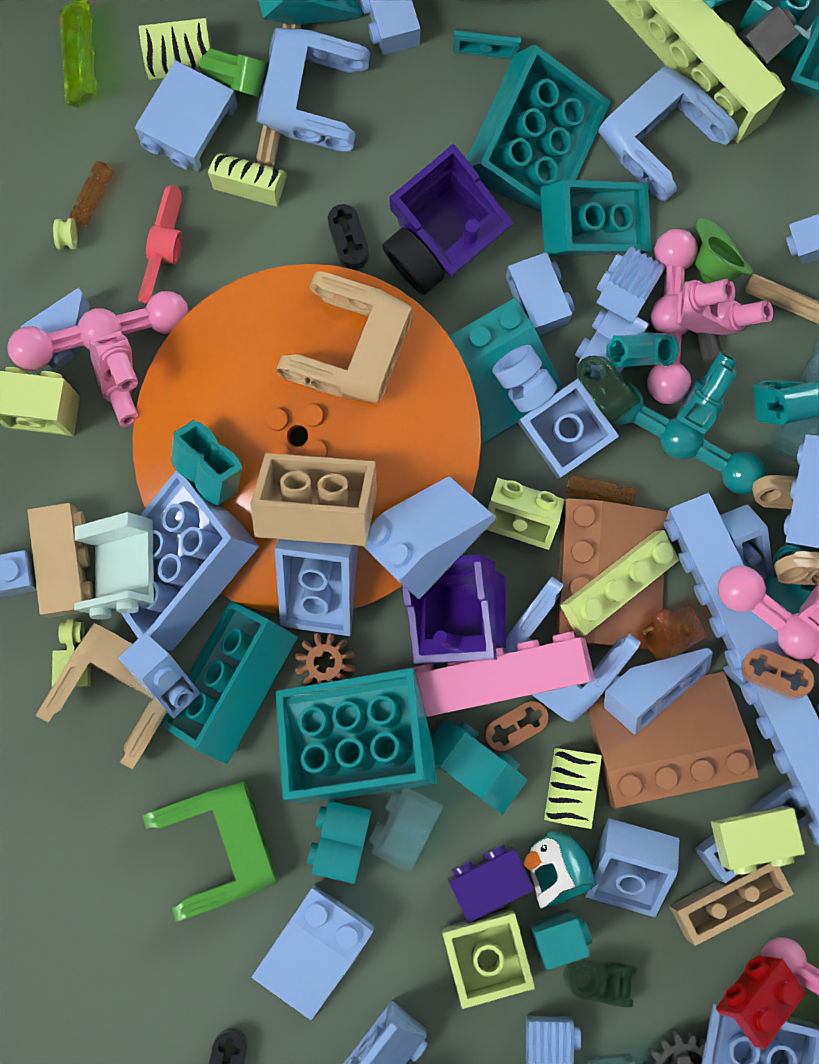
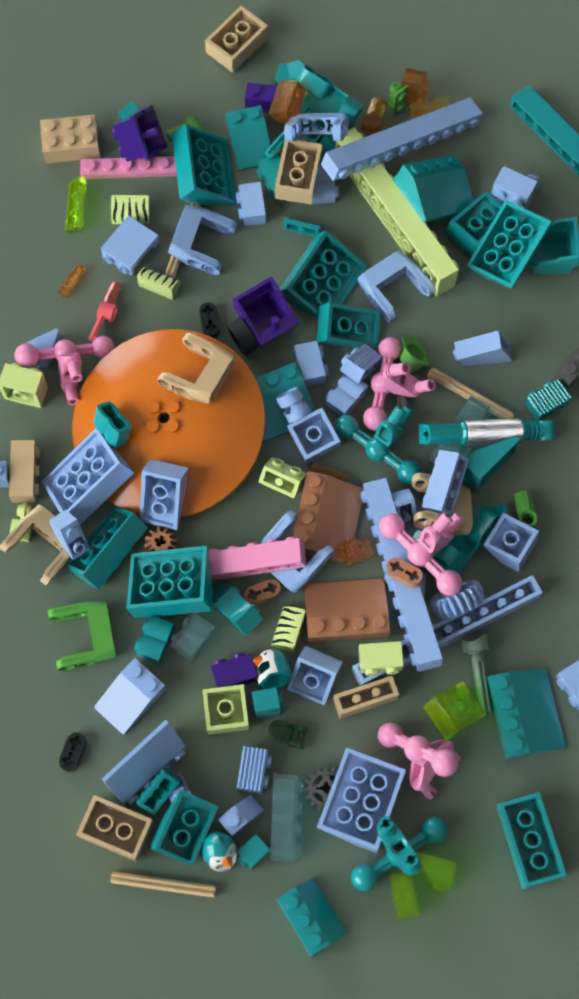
camera: 10 degrees right, 10 degrees down
(65, 233) = (53, 299): yellowish green bush -> none
(121, 564) = (58, 474): light aqua panel -> none
(239, 71) = (162, 225): bright green piece -> none
(314, 499) = (167, 448): tan brick -> none
(427, 534) = (224, 475): light blue slope -> none
(459, 614) = (235, 518): dark purple piece -> none
(611, 392) = (338, 416): clear green piece -> none
(619, 583) = (329, 519): yellowish green plate -> none
(642, 349) = (360, 397): teal piece -> none
(652, 687) = (339, 579): light blue slope -> none
(762, 999) = (373, 746): red bracket -> none
(770, 33) = (455, 240): flat silver slope -> none

